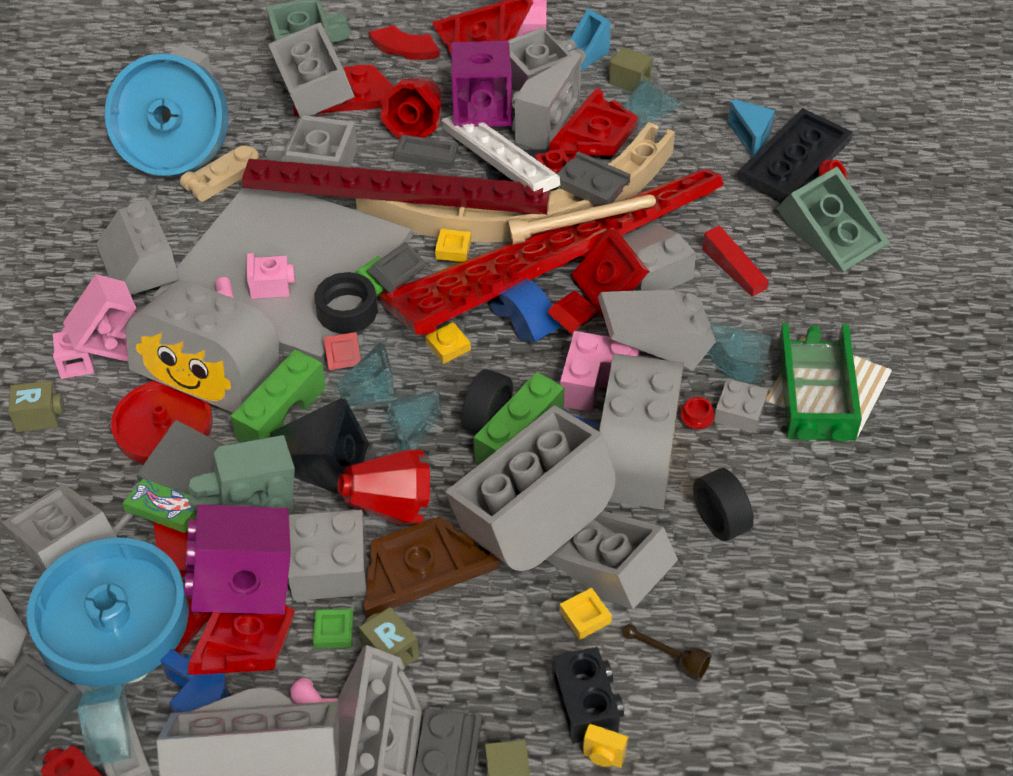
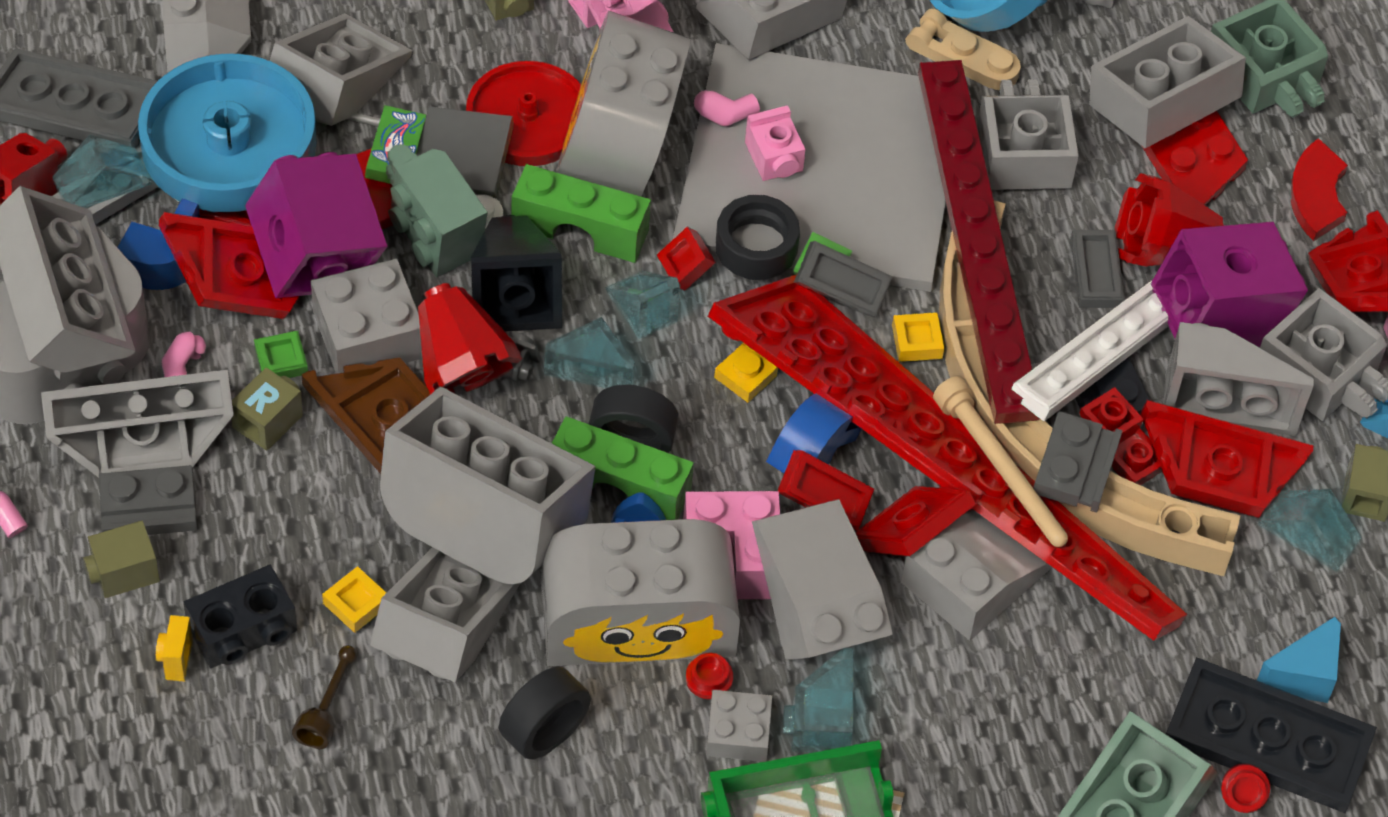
camera: 70 degrees right, 5 degrees up
(733, 261) = (1010, 681): red piece -> none

